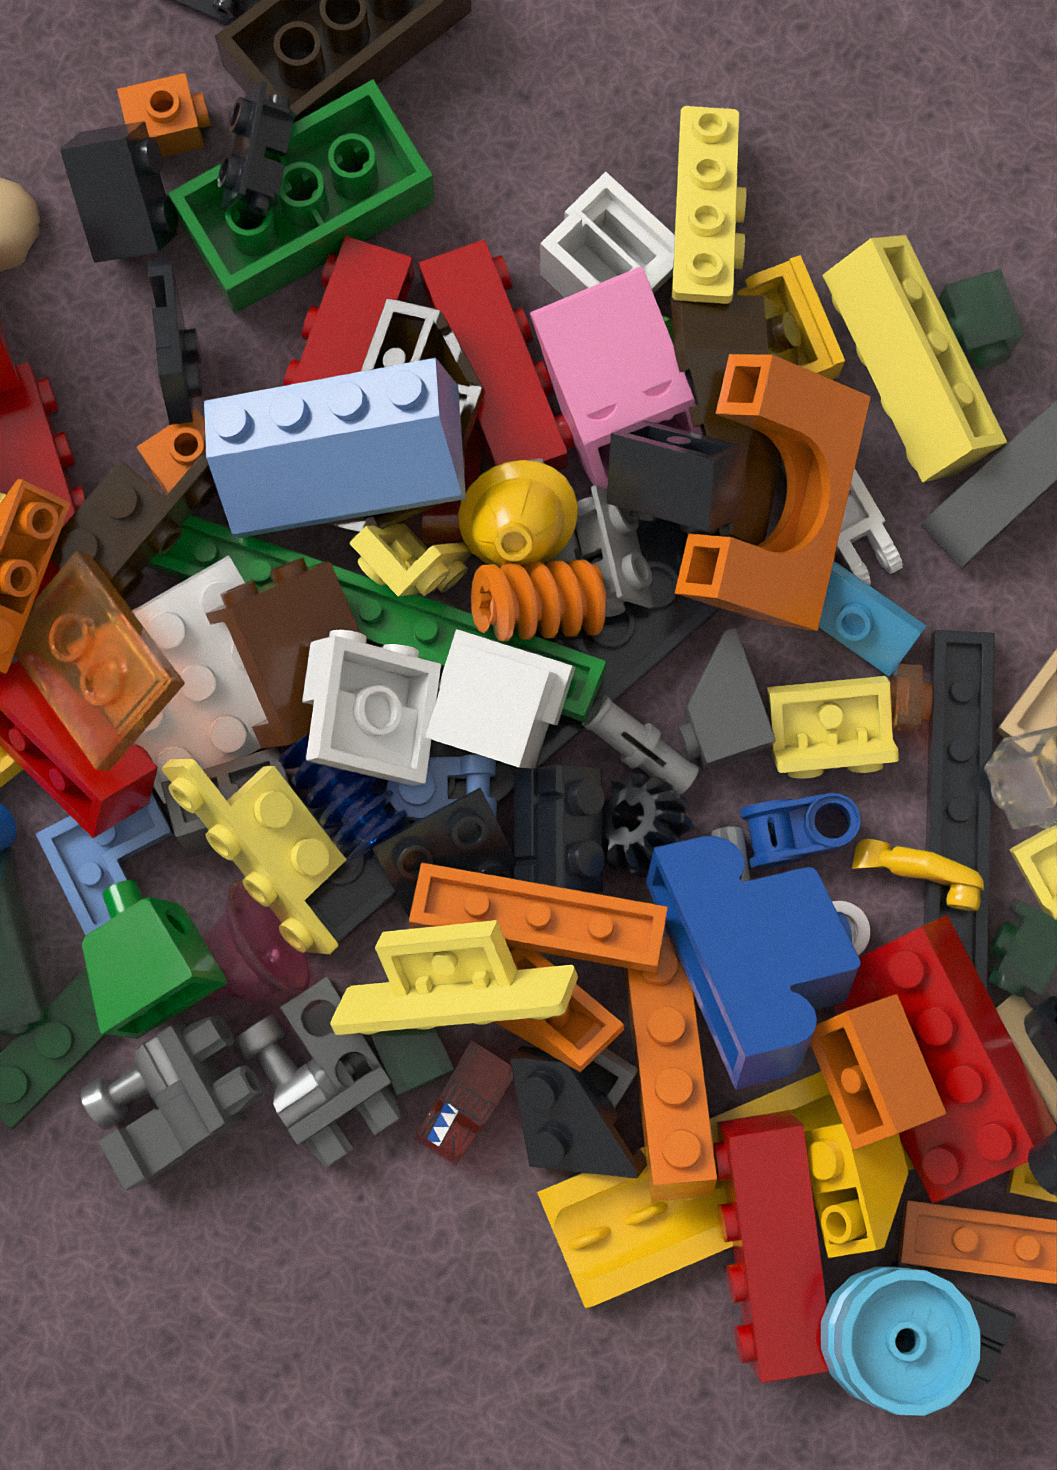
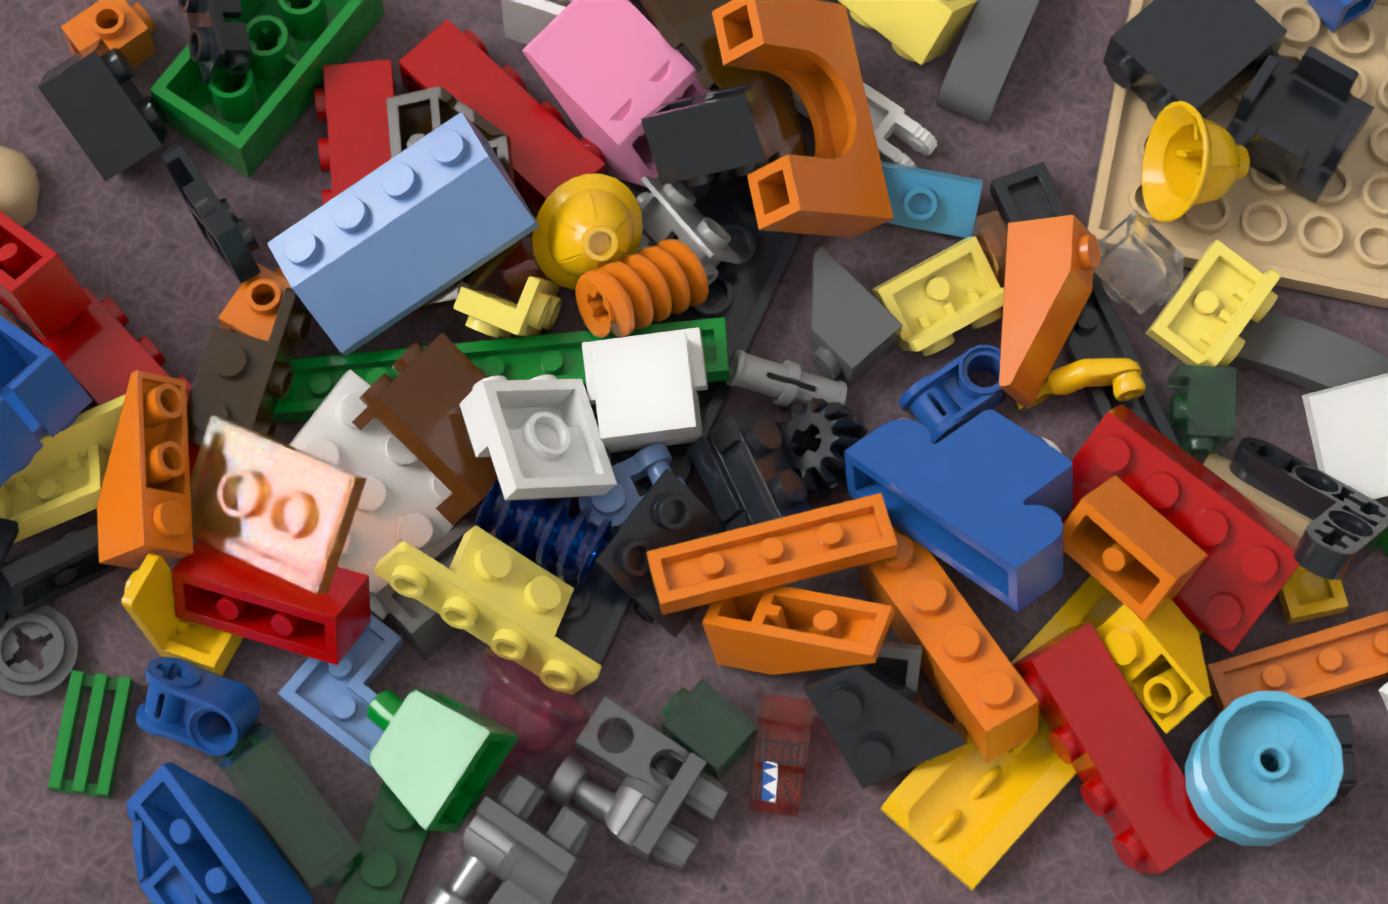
camera: 25 degrees left, 10 degrees down
(451, 979) = (719, 635): light yellow bracket -> none
(924, 773) = (1043, 296): none -> orange slope

